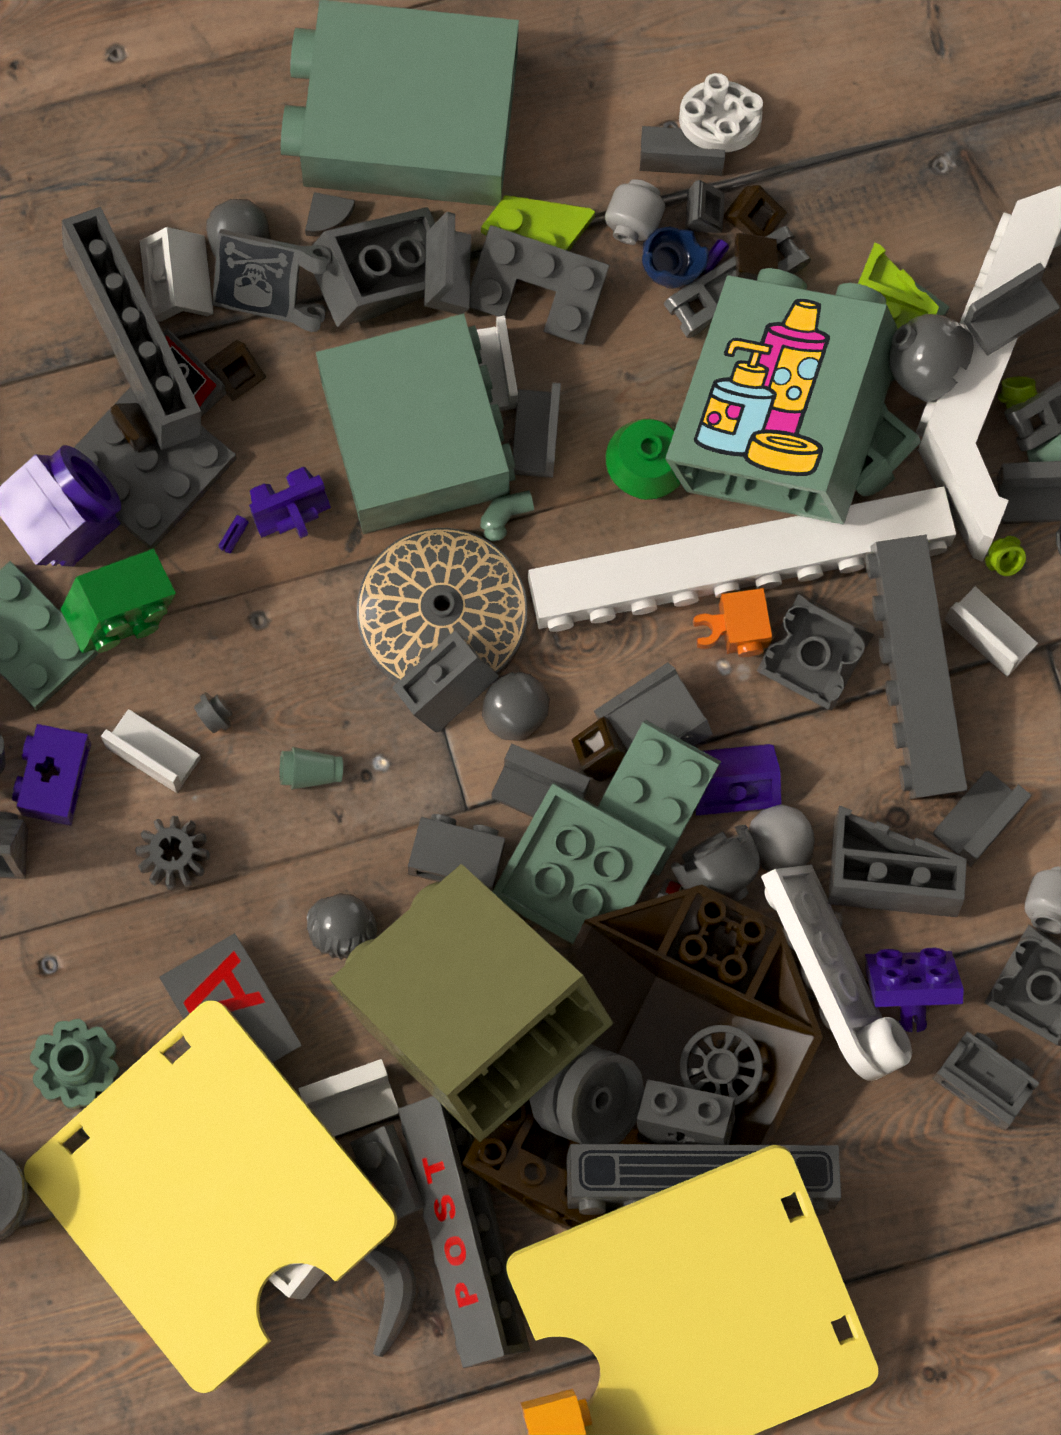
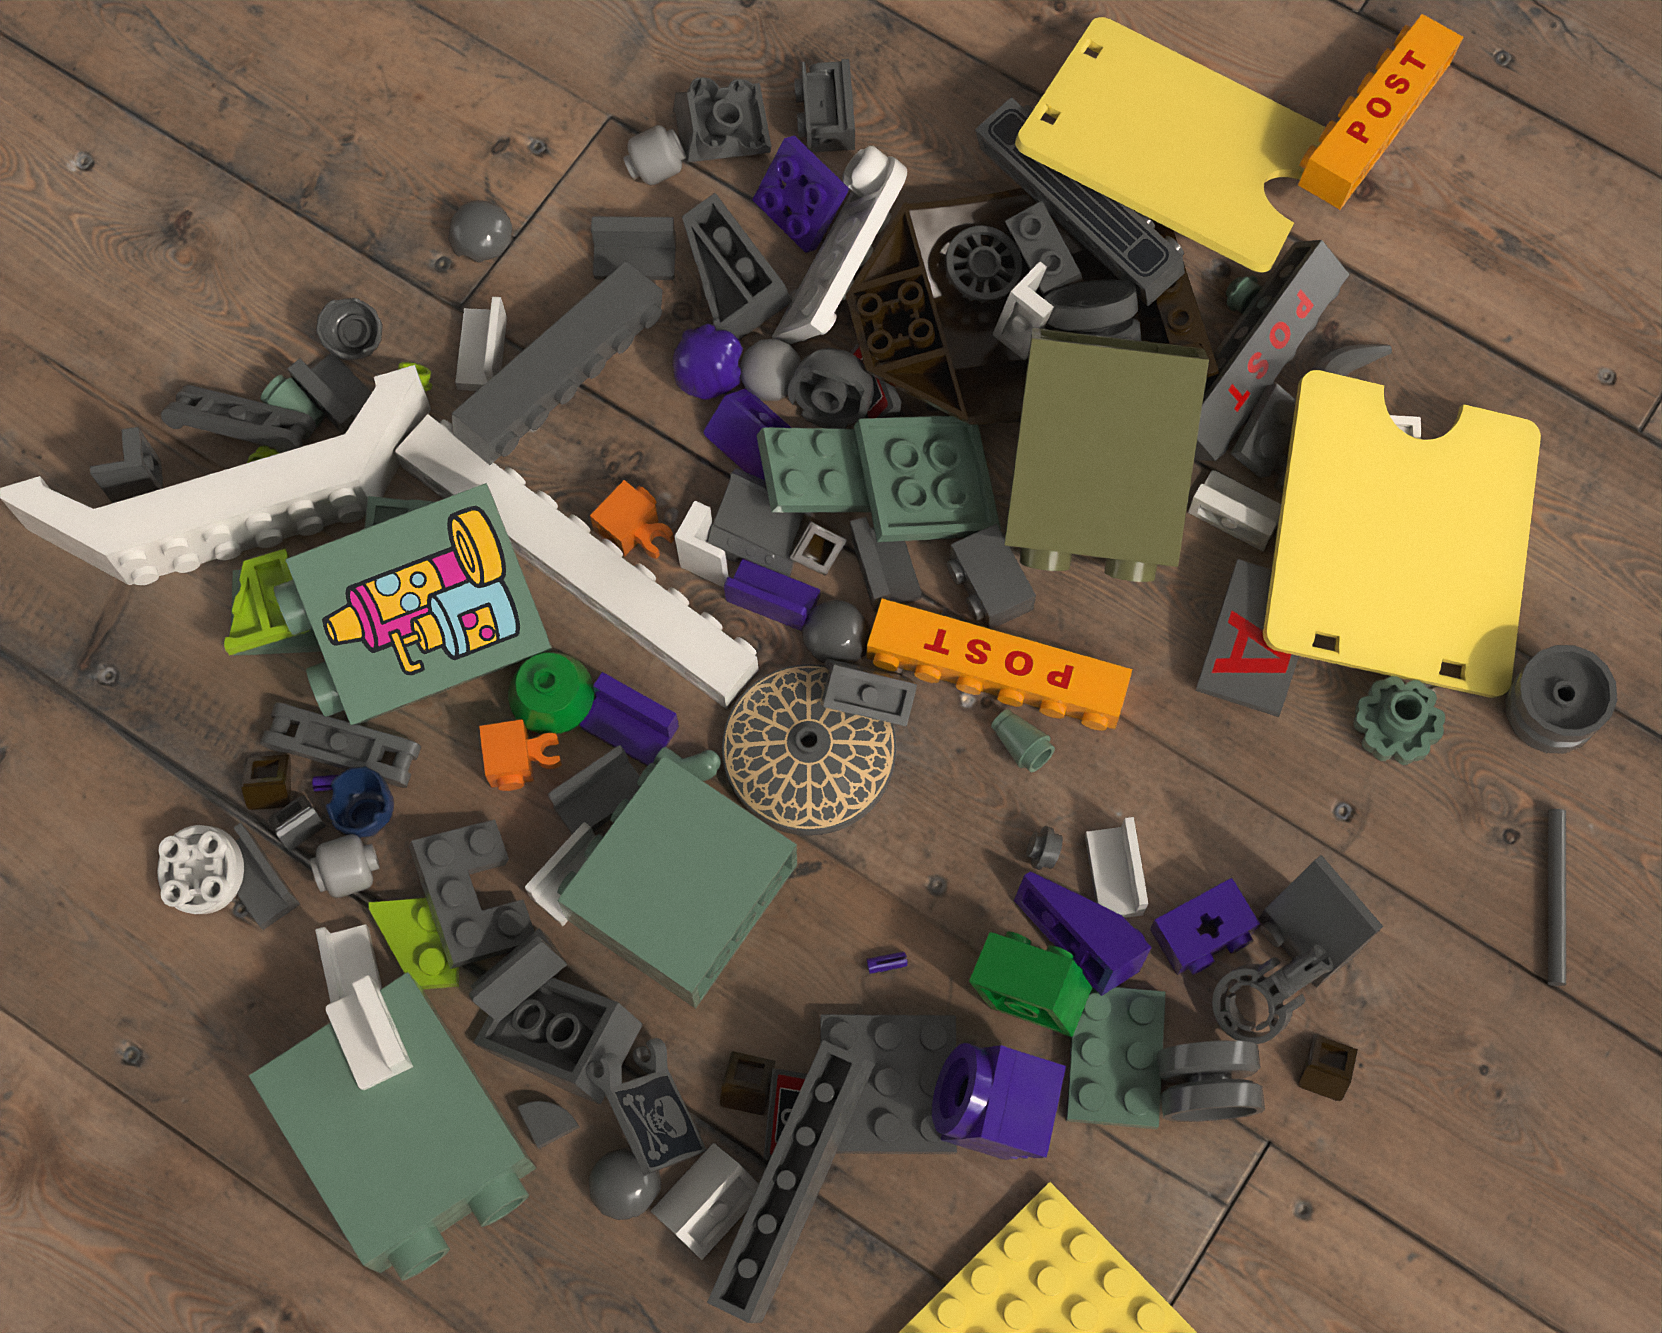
camera: 125 degrees left, 5 degrees down
(115, 684) = (1096, 936): none -> dark purple slope
(133, 425) = (872, 1107): dark brown slope -> none
(156, 858) = (1189, 770): dark grey gear -> none
(291, 506) = (807, 926): dark purple hips -> none
(340, 924) = (1118, 618): dark grey hair -> none
(382, 800) = (998, 665): none -> light orange brick
(475, 115) = (368, 1034): none -> white panel
(552, 160) = (346, 958): none -> white panel
(577, 499) = (629, 720): none -> dark purple panel
(587, 681) = (771, 594): none -> dark purple panel
(620, 392) = (510, 754): none -> orange brick
(641, 1039) = (1023, 312): none -> white panel
(666, 640) = (693, 547): none -> white panel
(754, 254) = (312, 736): dark brown slope -> none
(815, 652) = (603, 452): dark grey slope -> none
(824, 782) = (707, 362): none -> dark purple hair
(929, 354) = (295, 515): dark grey cylinder -> none
(1011, 310) = (210, 482): dark grey panel -> none

